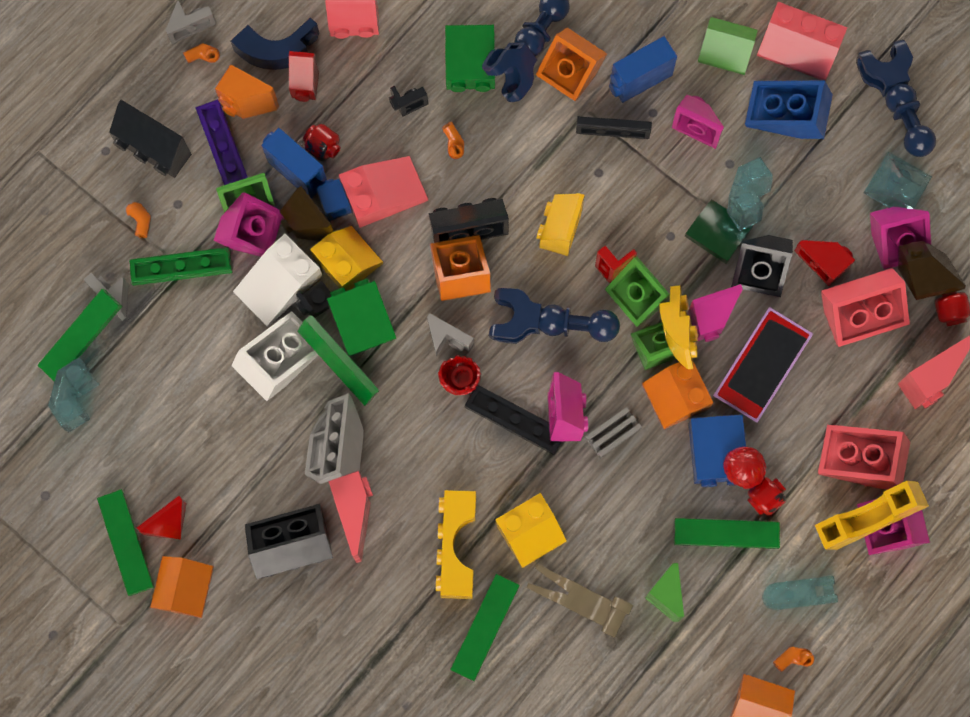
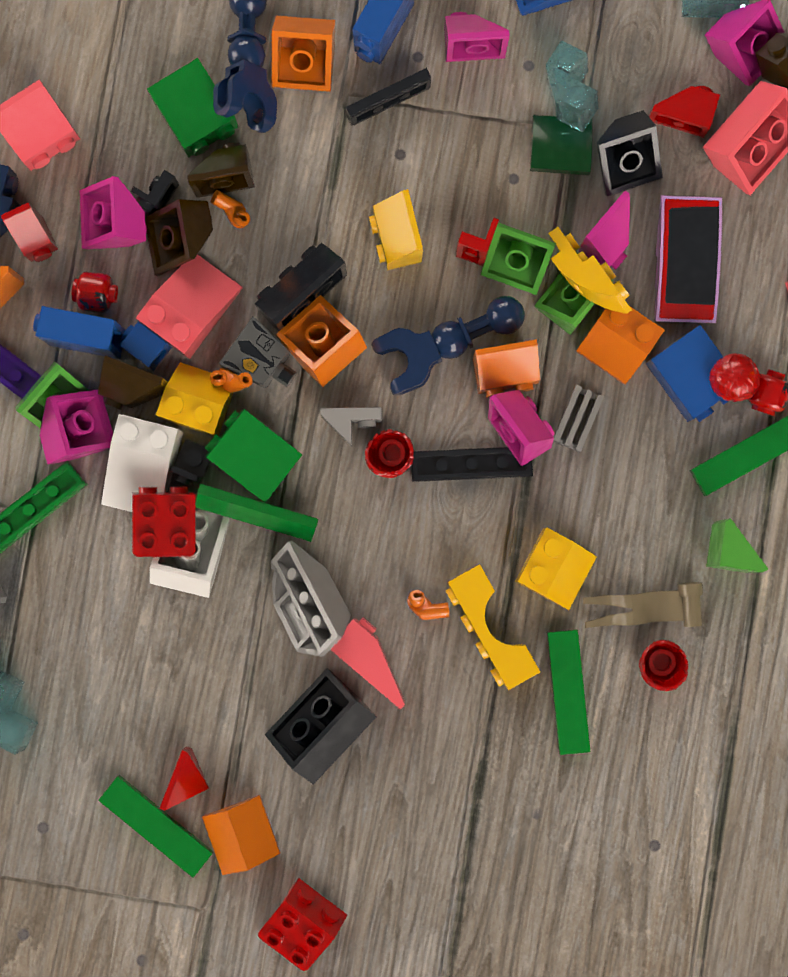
camera: 30 degrees left, 10 degrees up
(183, 678) = (302, 925): none -> red bracket
(268, 326) = (163, 522): none -> red bracket
(366, 98) = (110, 216): none -> dark pink slope
(378, 257) = (229, 380): none -> orange arm
(405, 135) = (177, 233): none -> dark brown slope
(408, 253) = (259, 355): none -> dark grey torso
(417, 503) = (424, 608): none -> orange arm
(464, 111) = (223, 170): none -> dark brown slope
(567, 648) = (664, 665): none -> red hair
(582, 362) = (507, 367): none -> orange slope

